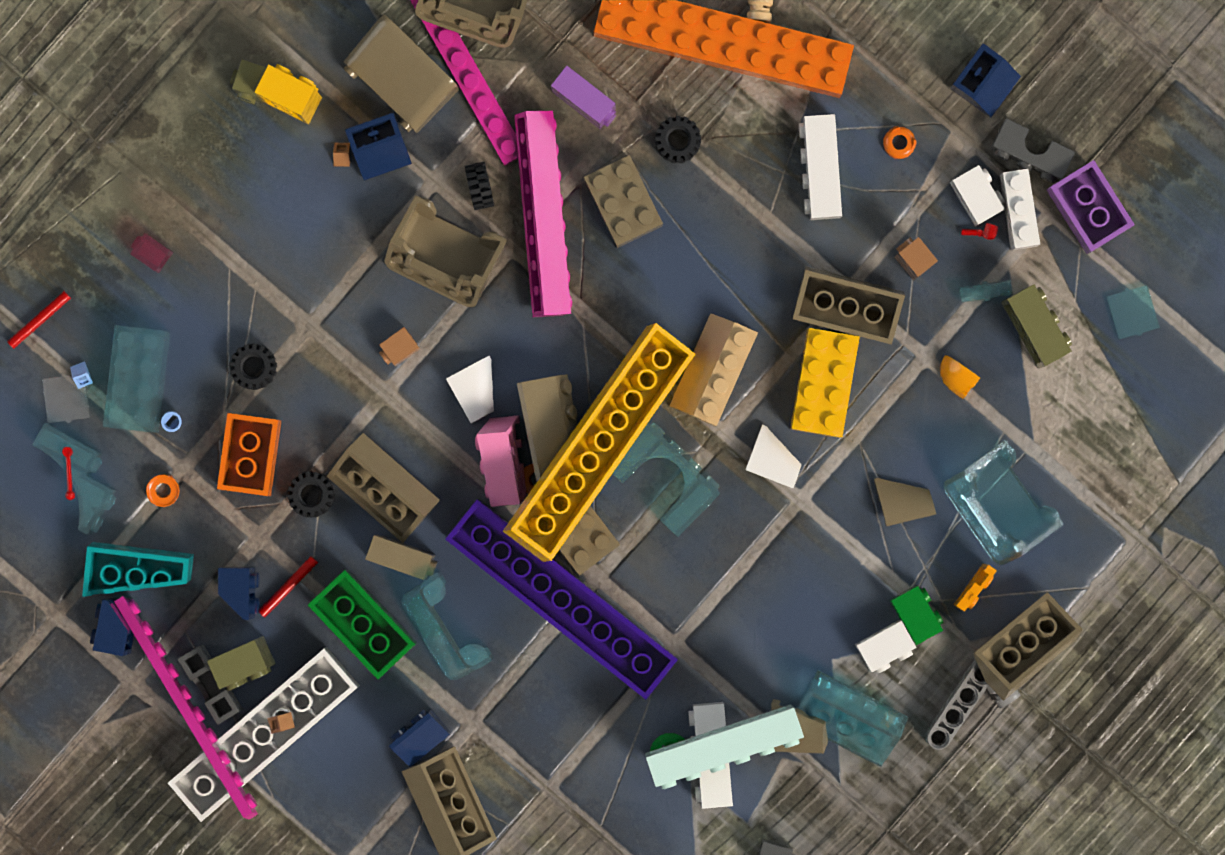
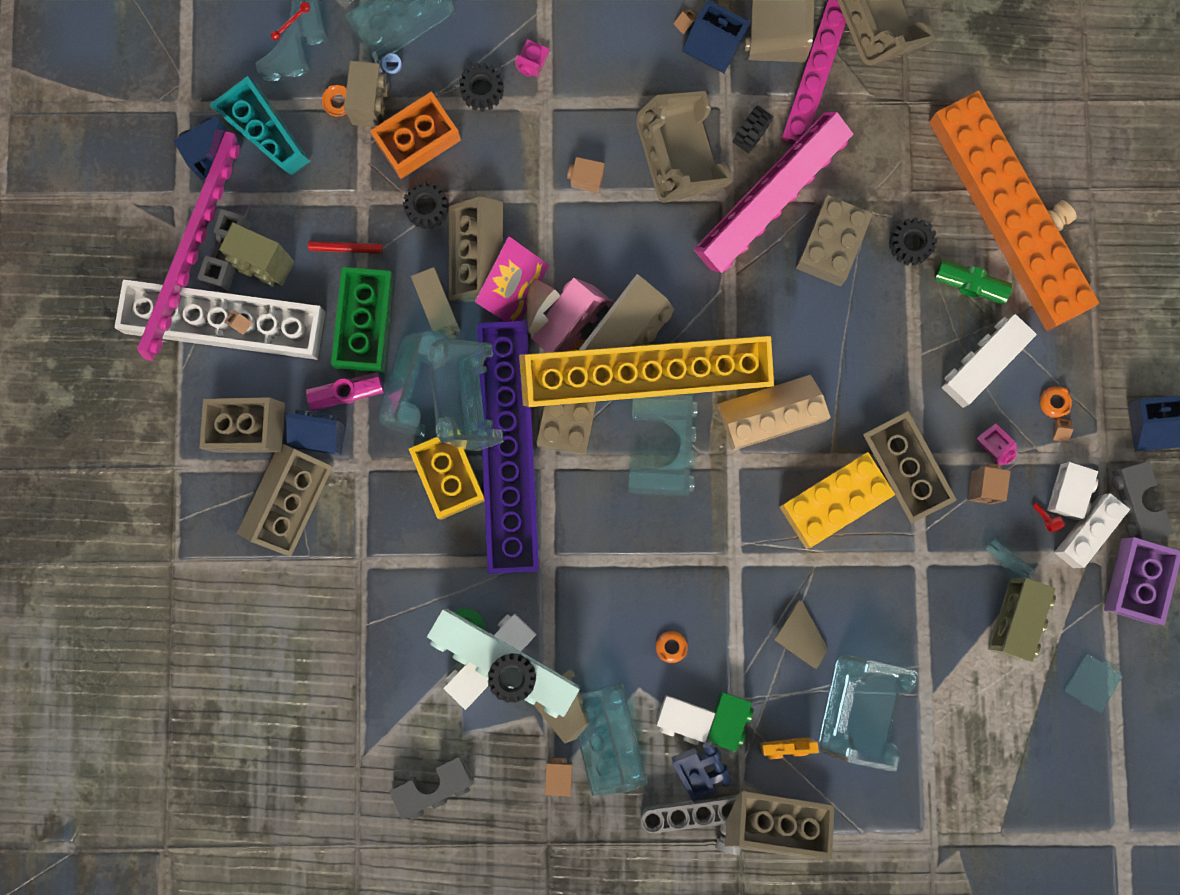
camera: 45 degrees right, 5 degrees down
(182, 464) = (366, 94): none -> dark tan brick
(238, 588) = (311, 211): dark blue slope -> none
(264, 306) = (531, 58): none -> dark pink bracket
(364, 788) = (242, 425): none -> dark tan brick
(397, 700) = (329, 394): none -> dark pink piece
(435, 482) = (510, 280): none -> dark pink sticker
(470, 476) = (538, 300): none -> dark tan slope
(474, 389) = (604, 254): white slope -> none
(493, 604) = (458, 395): none -> clear light blue windscreen
(541, 664) = (447, 477): none -> yellow brick
(584, 98) = (882, 146): medium lavender brick -> none
(744, 766) = (495, 678): none -> black tyre
(750, 122) = (973, 281): none -> green piece
(773, 459) = (746, 513): white slope -> none
(823, 619) = (660, 647): none -> orange piece
(844, 779) = (558, 777): none -> medium nougat brick
(892, 220) = (998, 445): none -> dark pink bracket
(925, 157) = (1062, 430): none -> medium nougat piece
(931, 675) = (694, 773): none -> dark blue plate
(957, 377) = (929, 594): light orange brick -> none

